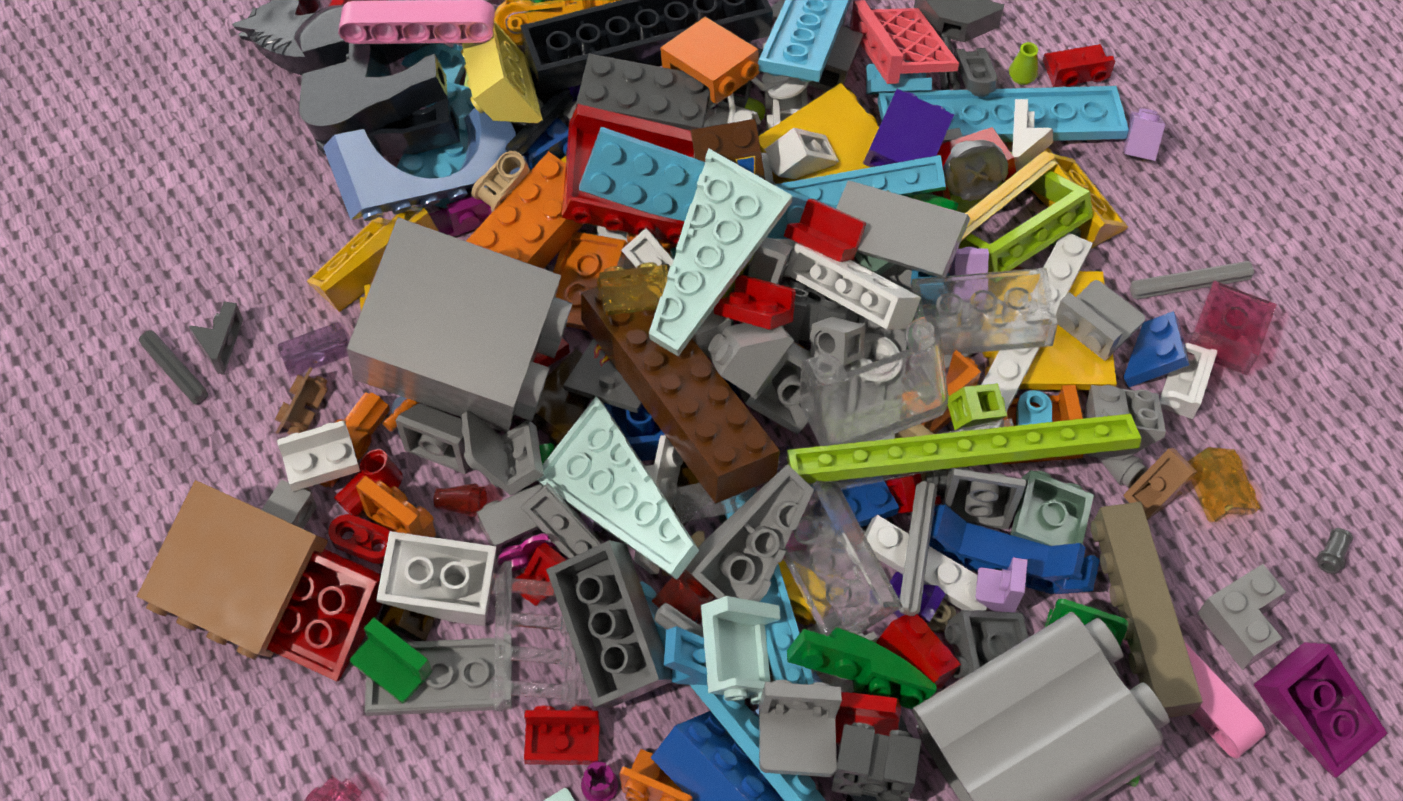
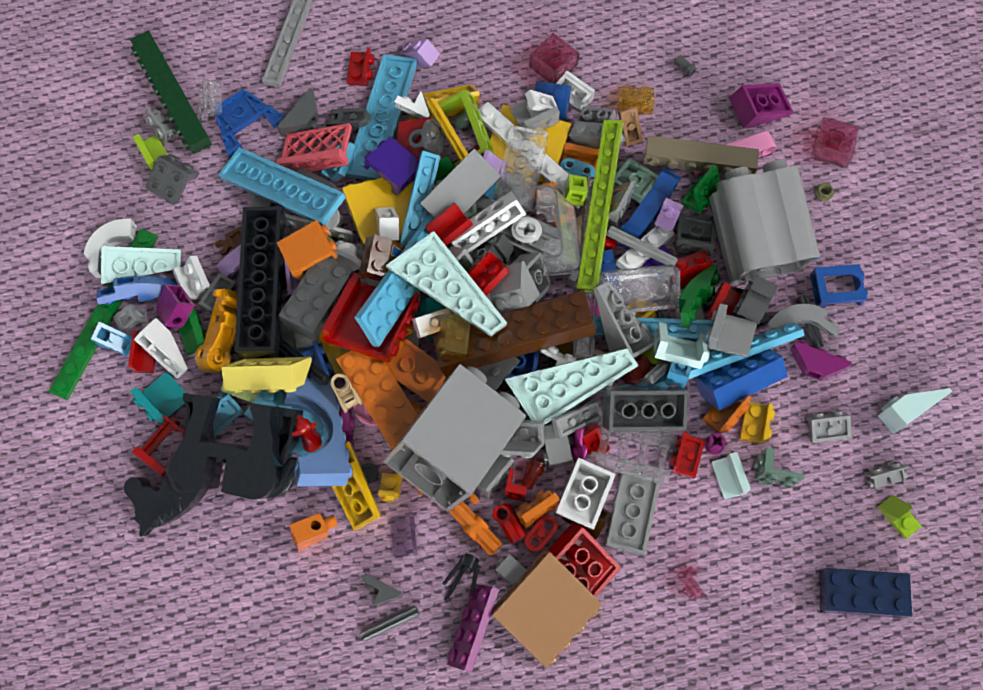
camera: 70 degrees left, 10 degrees up
(171, 469) = (472, 628): none -> magenta plate
(285, 216) = (303, 532): none -> orange torso
(285, 431) = (467, 564): none -> black plant
(305, 391) = (434, 545): medium nougat hinge -> none
(318, 455) = (491, 543): white bracket -> none
(391, 662) = (623, 534): green panel -> none
(417, 21) = (218, 409): bright pink beam -> none
(421, 157) = (310, 438): none -> red animal
(425, 462) = (514, 491): none -> red panel
(838, 338) = (518, 243): light grey brick -> none
(1025, 65) = (352, 93): lime cone -> none
(1122, 311) = (539, 102): none -> white slope
(1191, 279) = (515, 67): light grey axle -> none
(1238, 616) = (709, 120): light grey brick -> none

